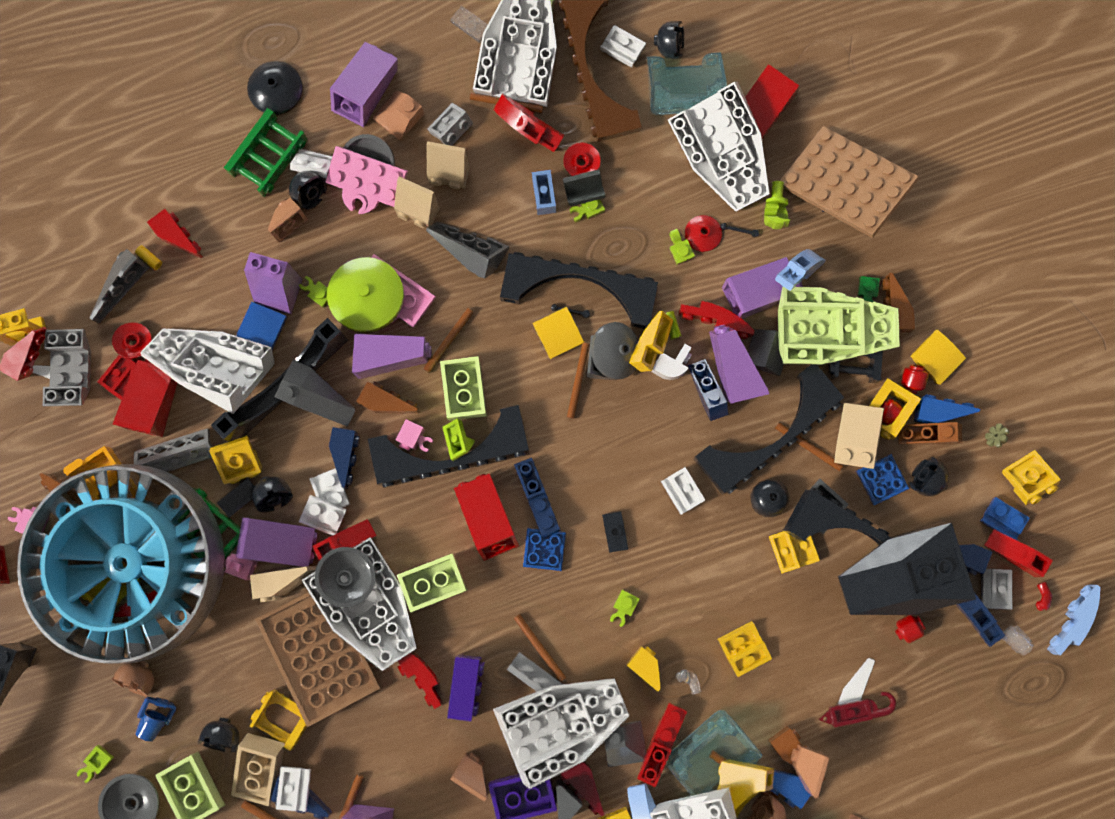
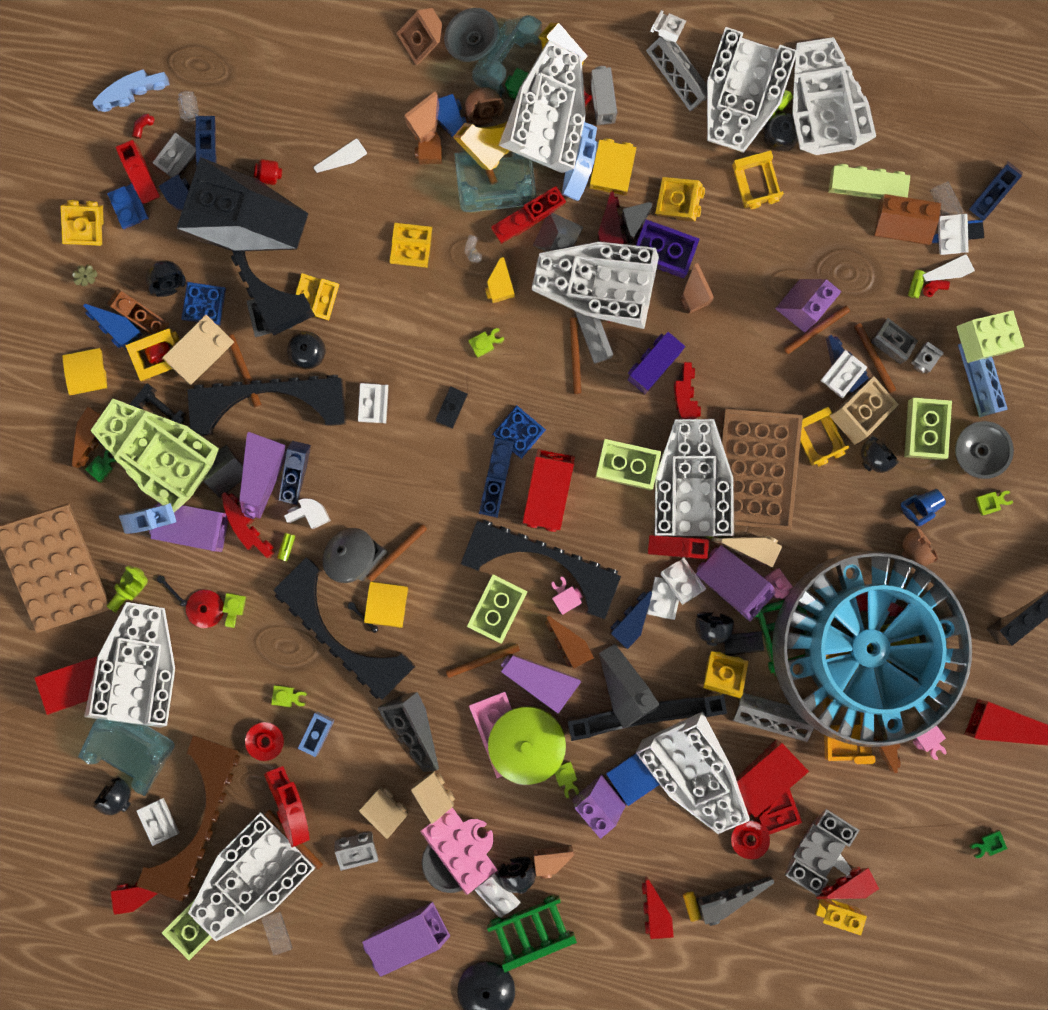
camera: 150 degrees left, 5 degrees up
(348, 563) = (682, 512): dark grey dish -> none
(399, 114) = (394, 891): nougat slope -> none
(456, 439) = (531, 569): lime slope -> none
(584, 188) = (279, 715): pearl dark grey panel -> none
(652, 342) = (314, 541): yellow slope -> none
(857, 711) = (355, 137): dark red plate -> none
(914, 378) = (117, 366): red head -> none

